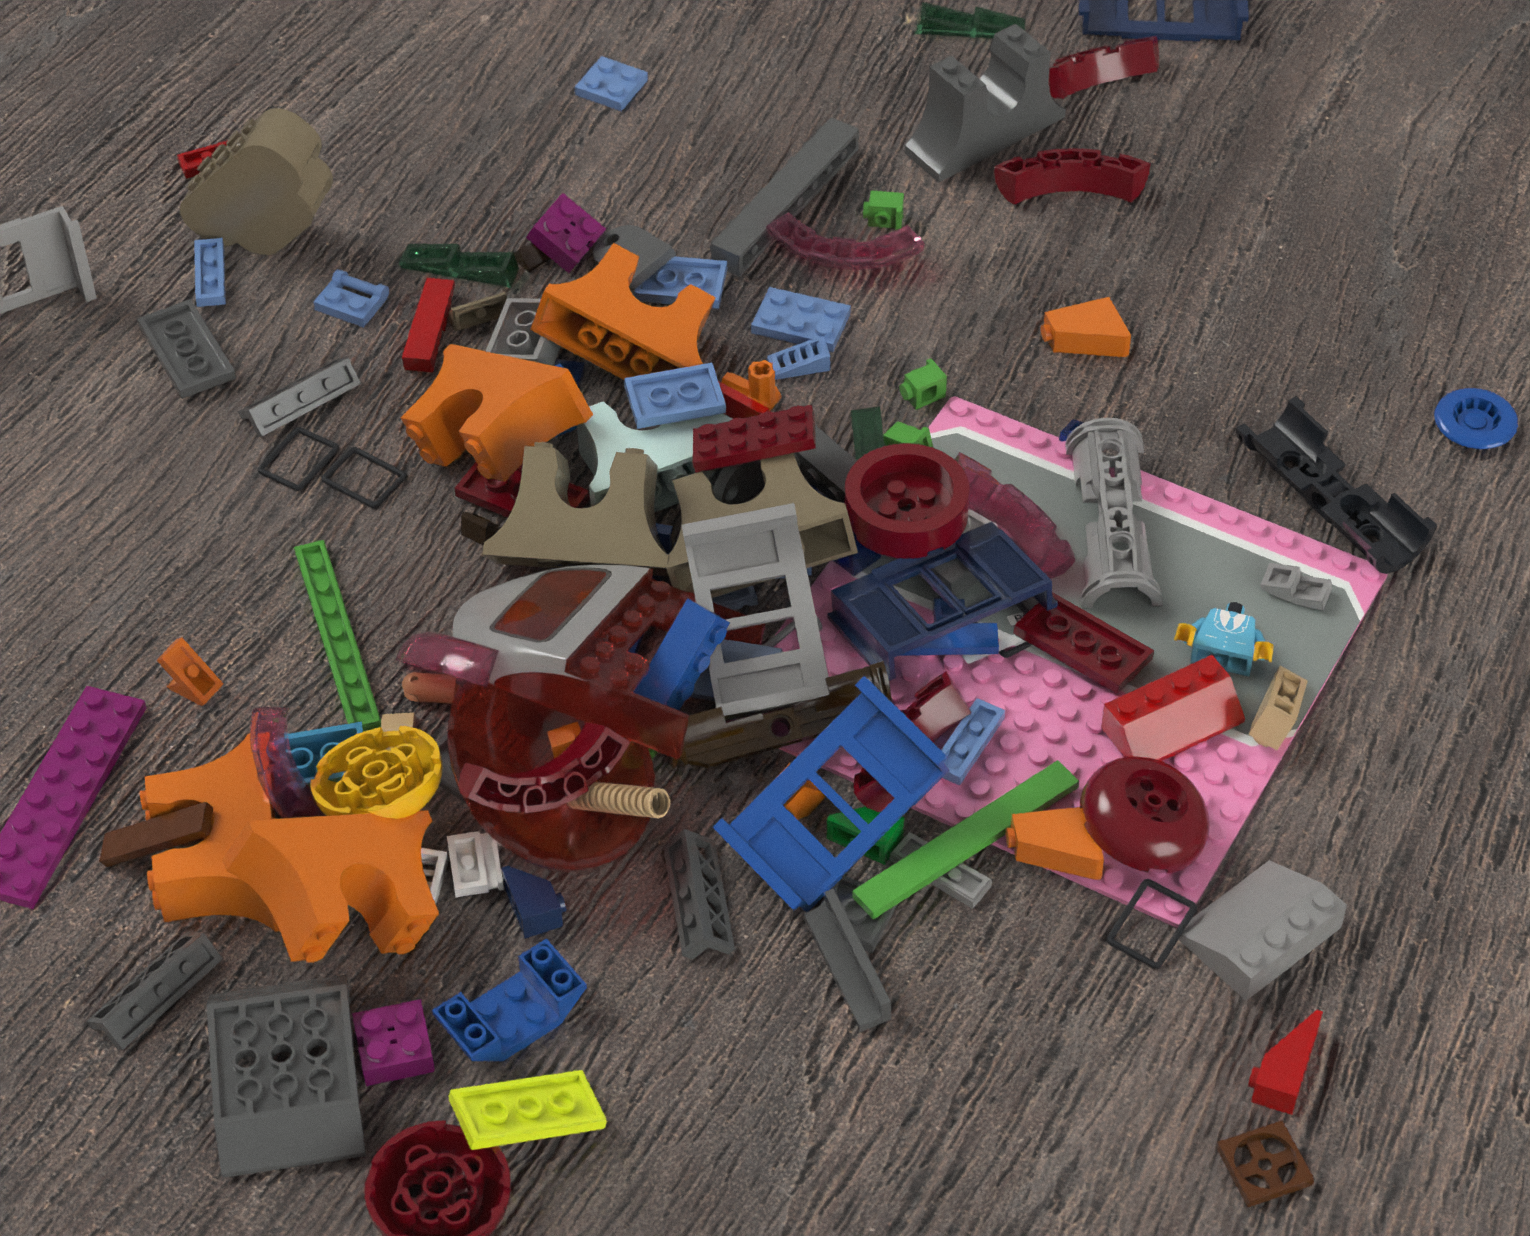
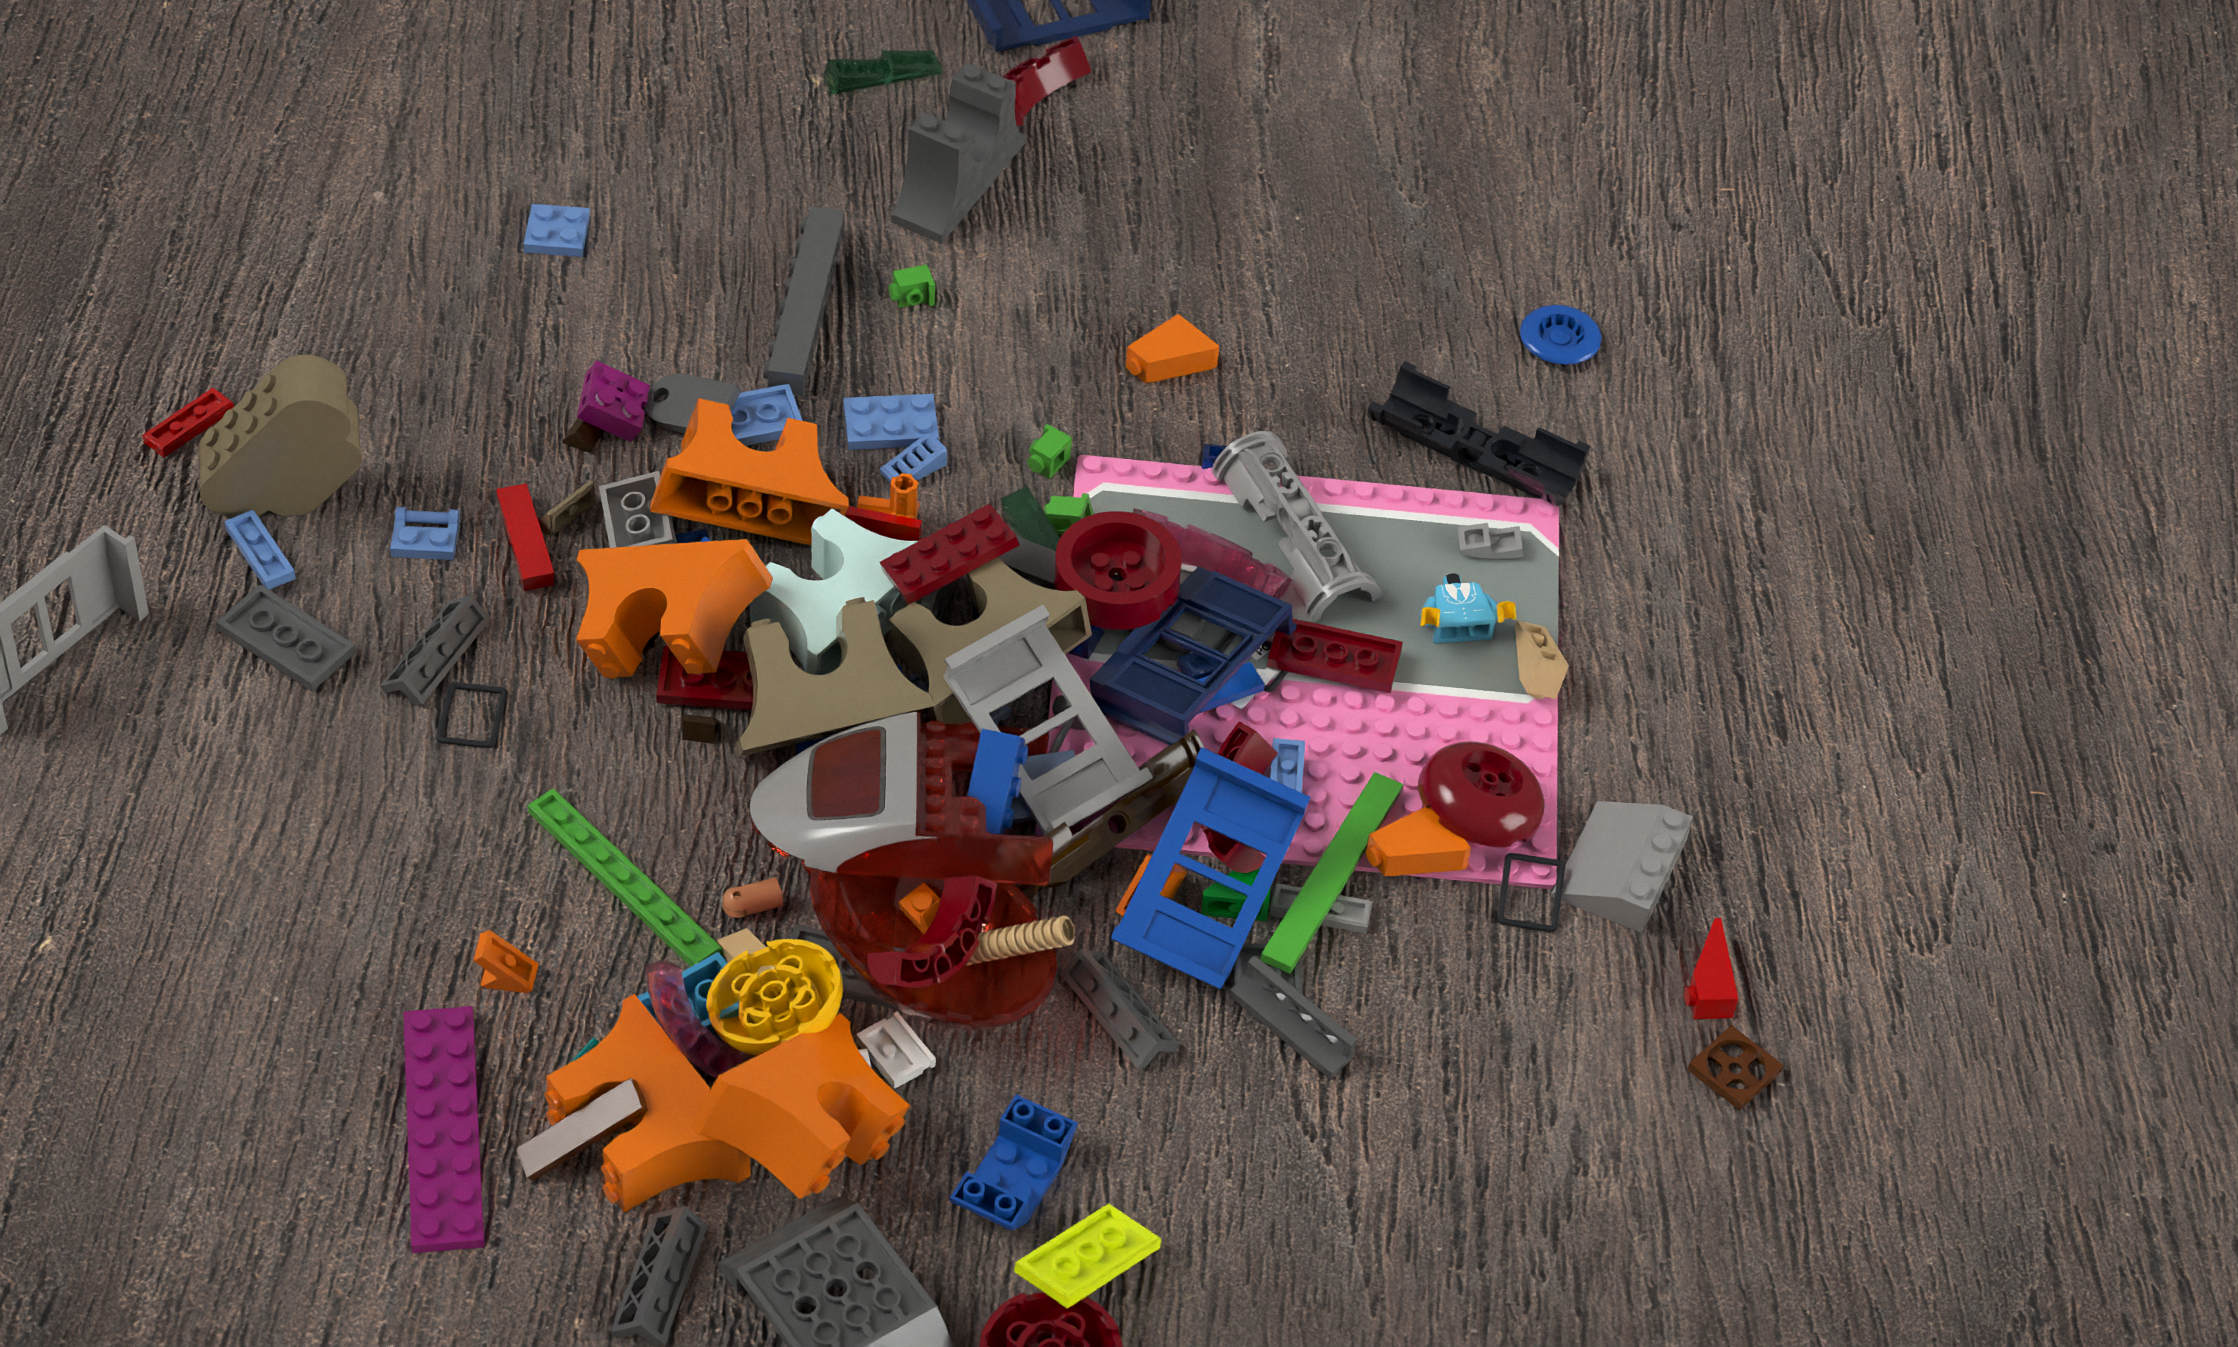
camera: 30 degrees left, 0 degrees up
(386, 494) = (512, 727): black piece -> none
(393, 1042) = (926, 1239): magenta piece -> none
(450, 261) = (503, 465): clear green slope -> none
(456, 655) = (771, 857): clear pink brick -> none
(533, 901) = (972, 1066): dark blue slope -> none
(674, 395) = (842, 534): medium blue plate -> none
(845, 252) = (897, 342): clear pink brick -> none
(1071, 171) = (1071, 196): dark red brick -> none
(1174, 712) = (1452, 694): slope -> none

